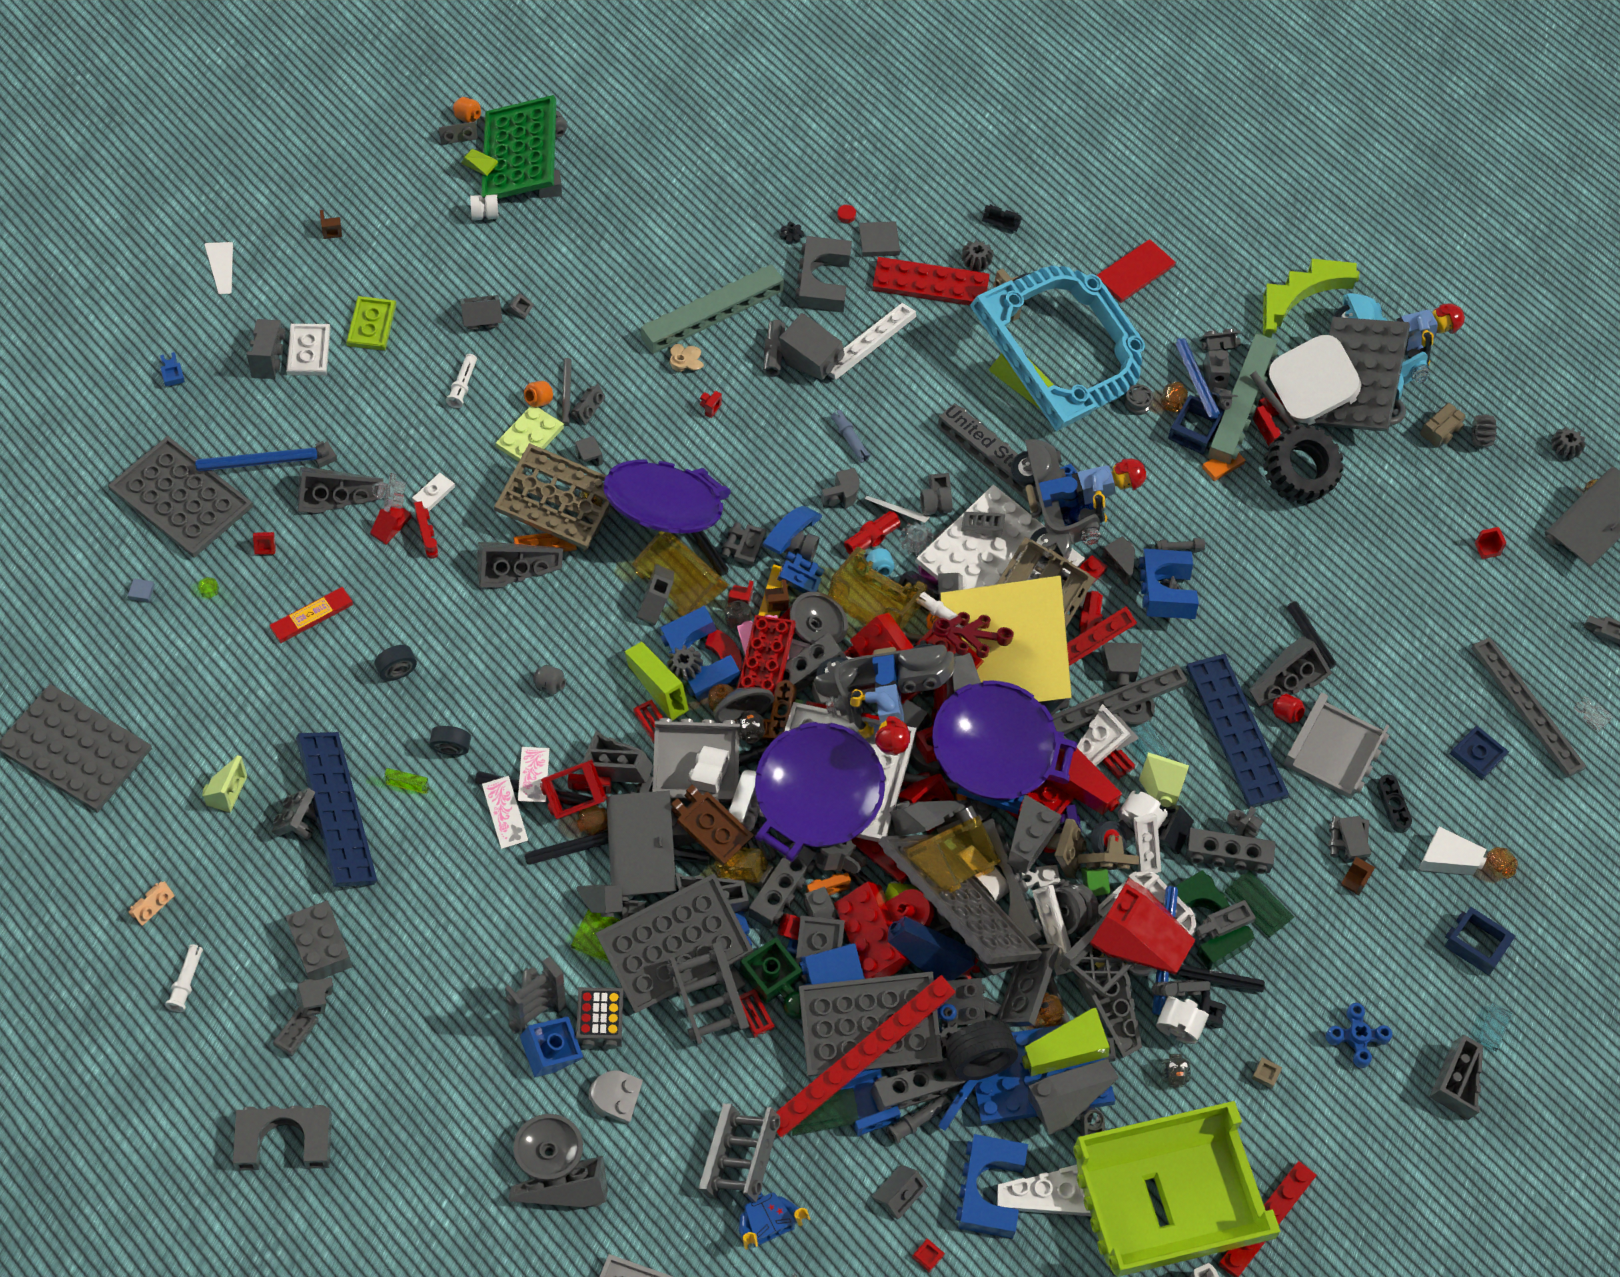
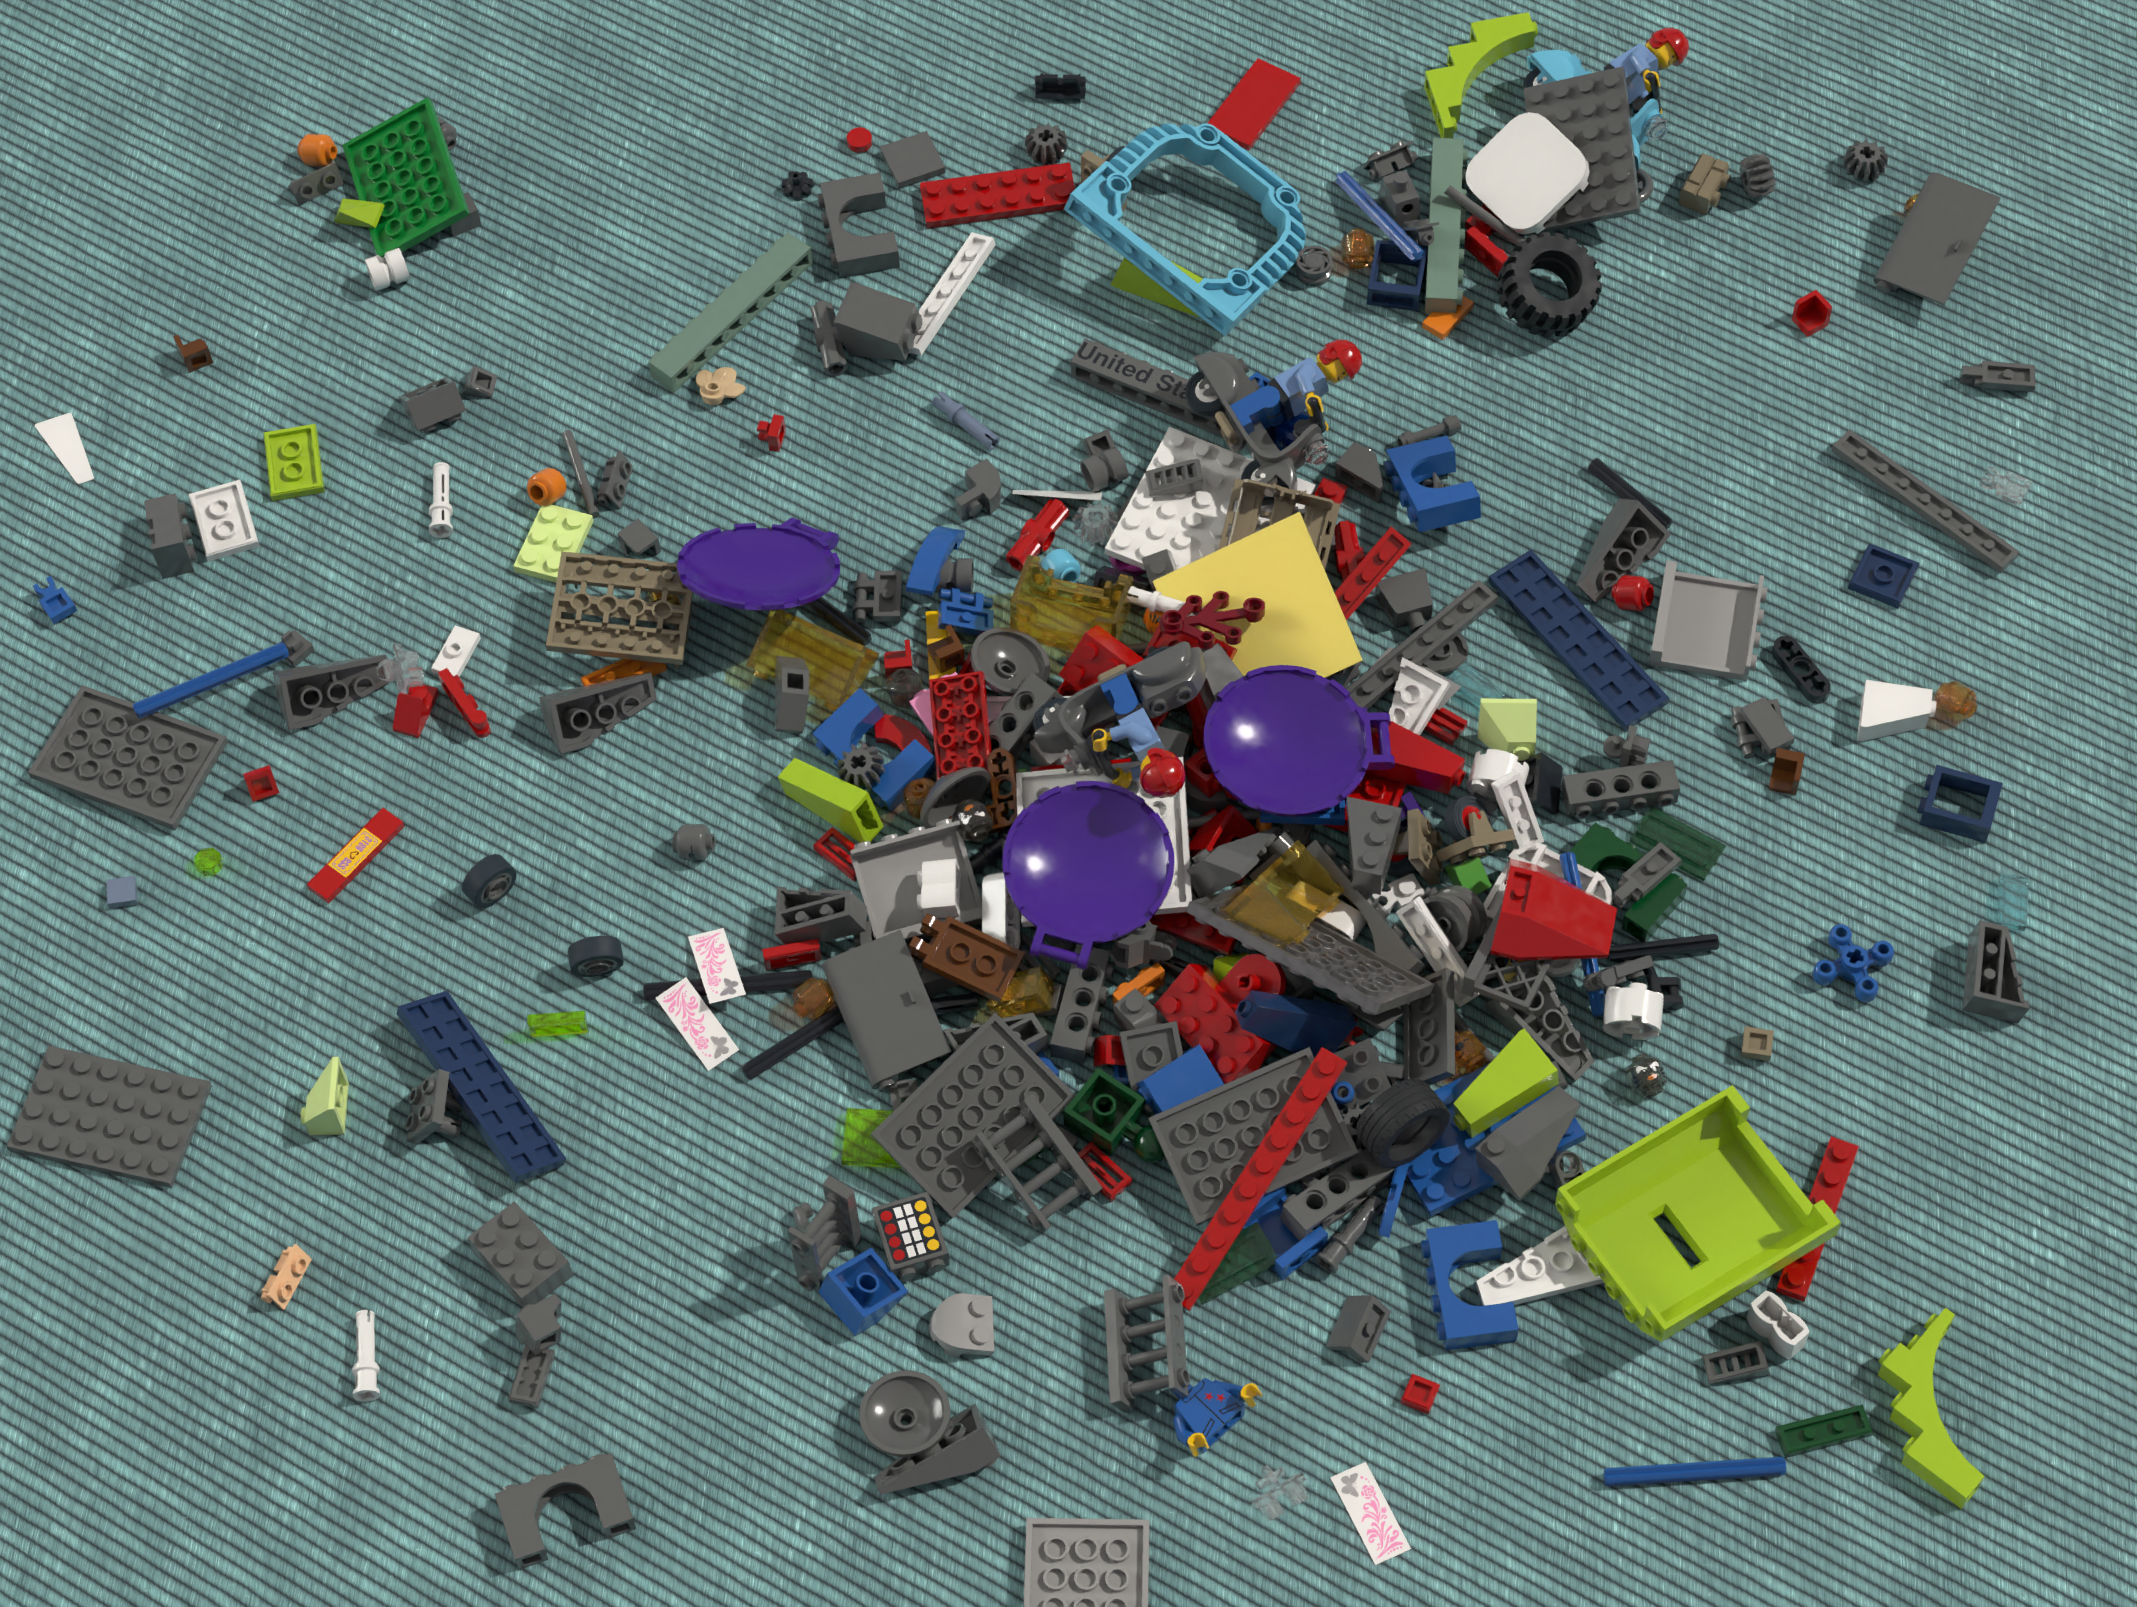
camera: 10 degrees left, 0 degrees up
(593, 781) = (801, 951): red window -> none
(602, 898) = (861, 1090): dark grey slope -> none

